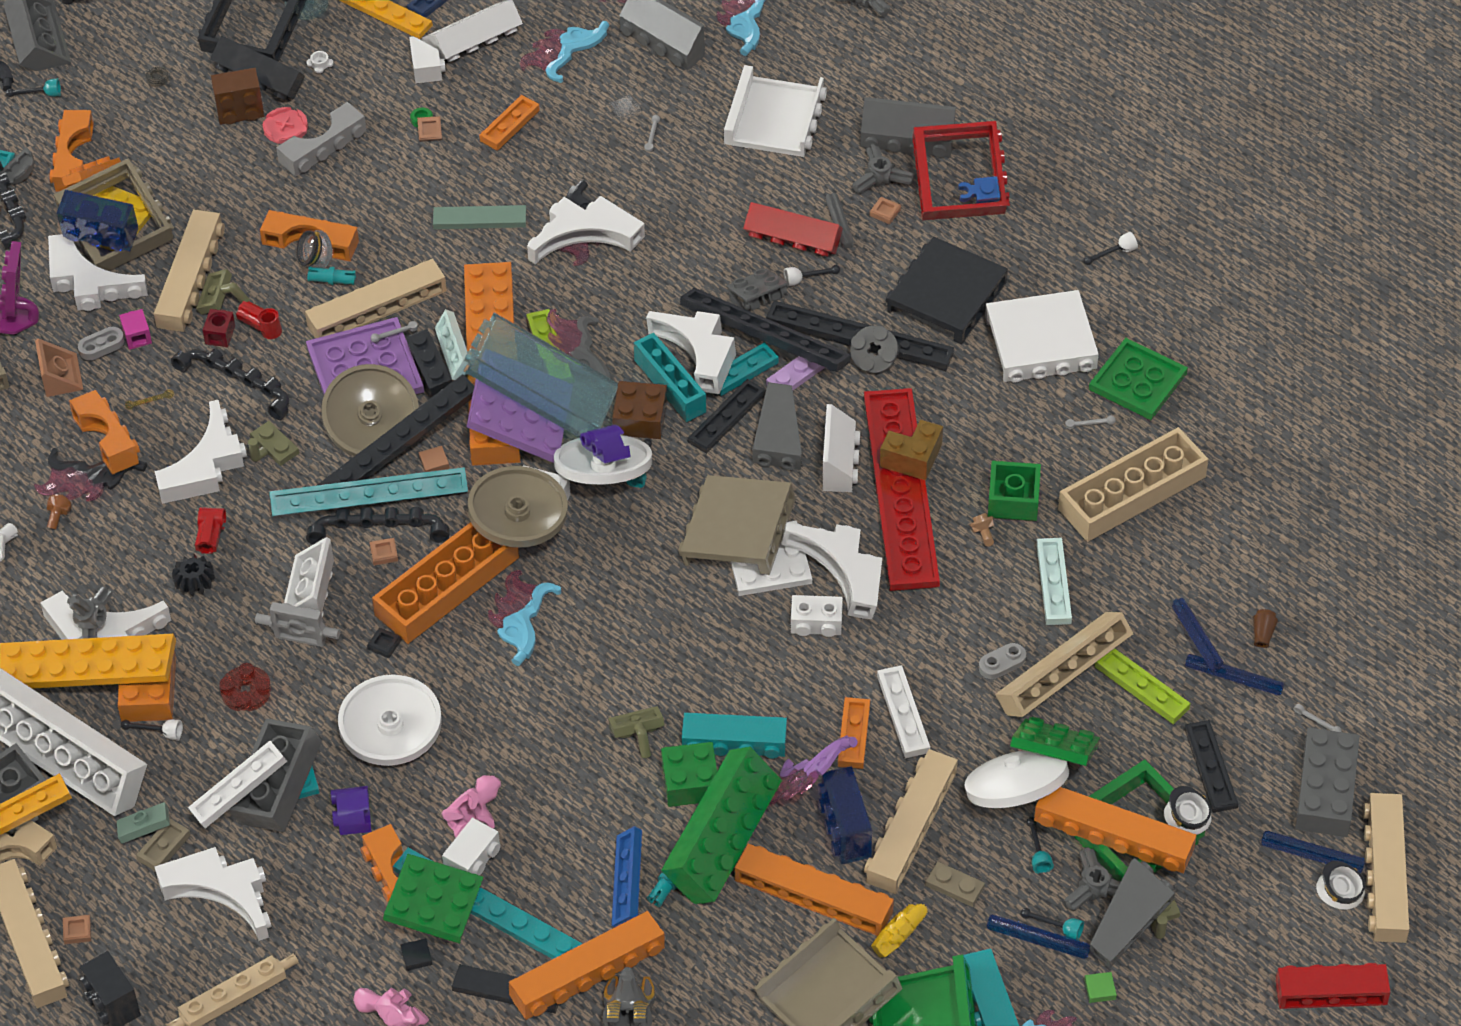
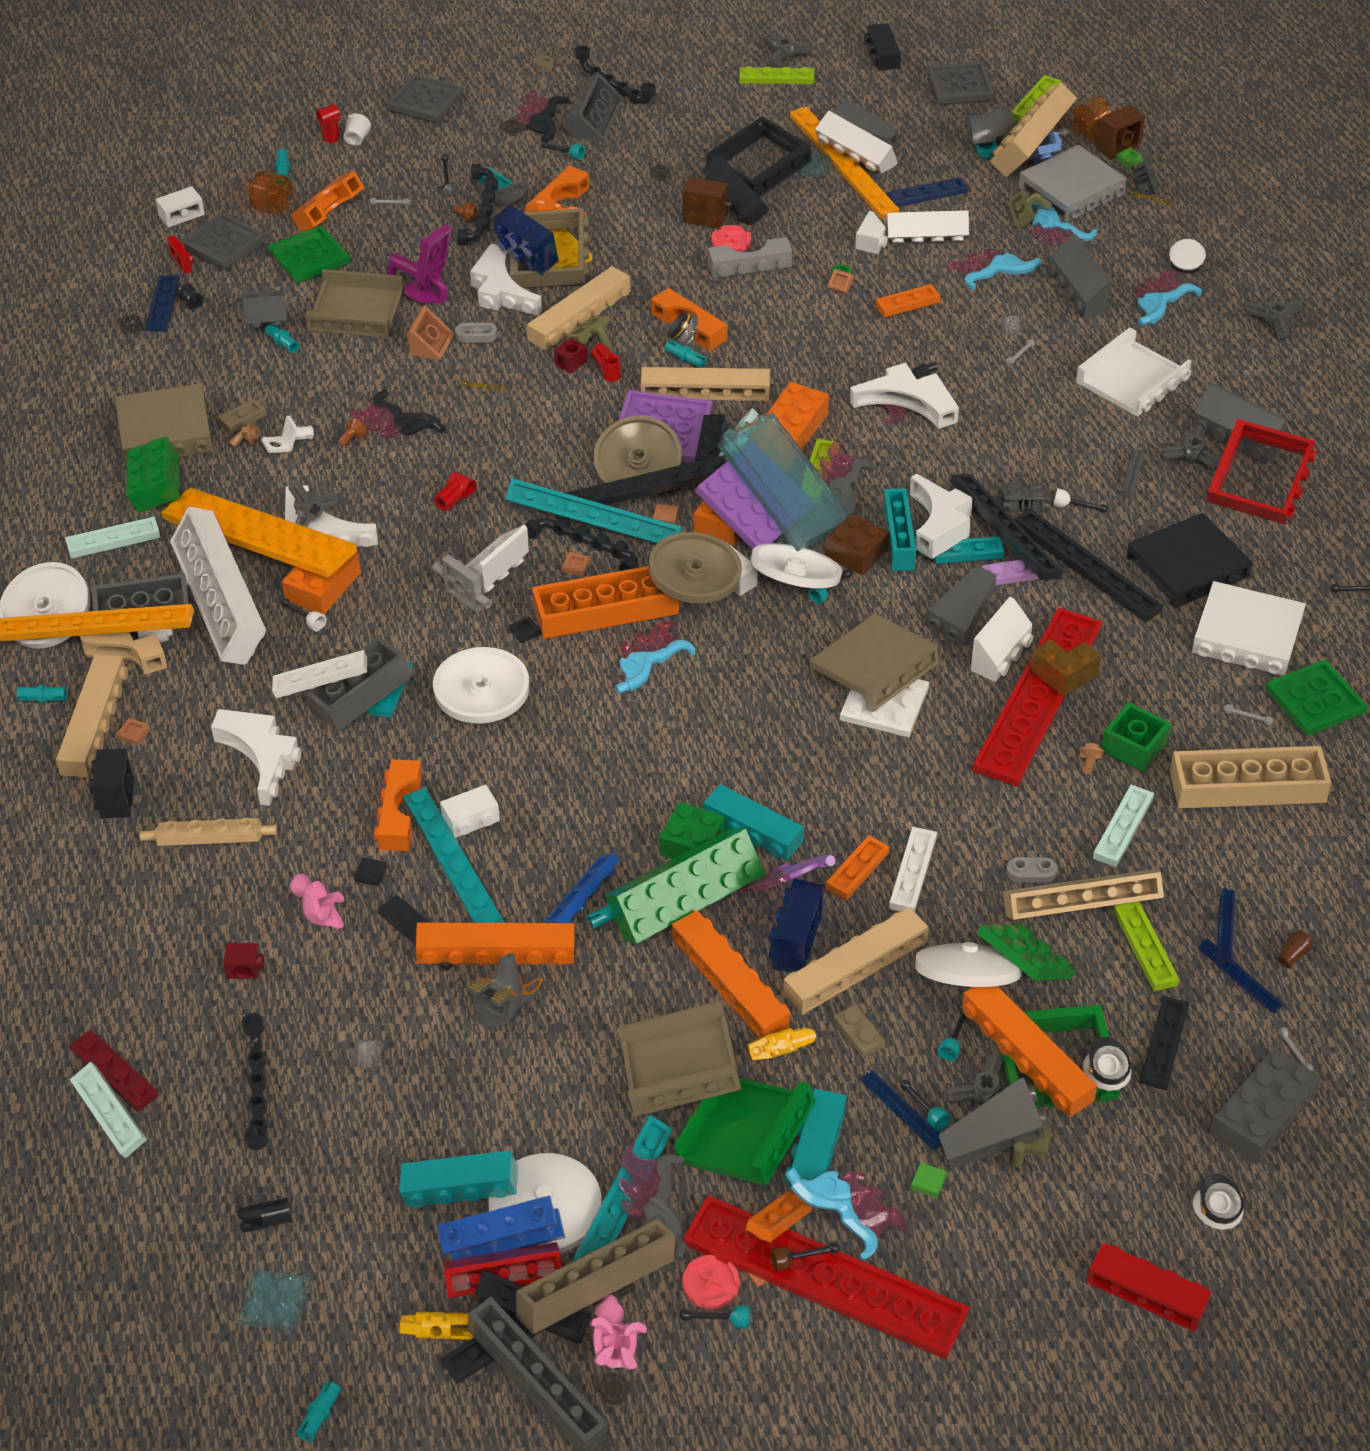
camera: 30 degrees right, 5 degrees down
(94, 414) = (429, 403): orange arch -> none
(135, 329) = (508, 332): dark pink brick -> none
(143, 822) = (239, 676): sand green plate -> none
(163, 845) = (243, 698): dark tan plate -> none
(193, 575) = (416, 518): black gear -> none
(202, 467) = (480, 446): white arch -> none
(245, 675) = (382, 612): clear red plate -> none
(271, 443) = (550, 452): olive plate -> none
(277, 409) = (562, 389): black bar -> none
(319, 61) = (790, 205): white plate -> none
(352, 810) = (403, 739): dark purple cylinder -> none
(412, 326) = (683, 408): light grey hinge -> none
(433, 898) = (408, 831): green plate -> none
(473, 805) = (499, 777): bright pink animal -> none
(479, 217) = (834, 358): sand green tile -> none
(606, 443) = (803, 552): dark purple cylinder -> none
(639, 723) = (673, 777): olive plate -> none
(726, 416) = (927, 580): black tile -> none
(792, 228) = (1085, 461): brick -> none
(816, 615) = (891, 761): white brick -> none
(838, 552) = (946, 725): white arch -> none
(885, 210) = (1179, 481): nougat tile -> none
(886, 355) = (1081, 570): dark grey plate -> none
(984, 190) = (1271, 493): blue plate -> none
(1310, 850) = (1211, 1159): clear blue axle -> none
(1387, 868) = (1274, 1209): tan brick -> none

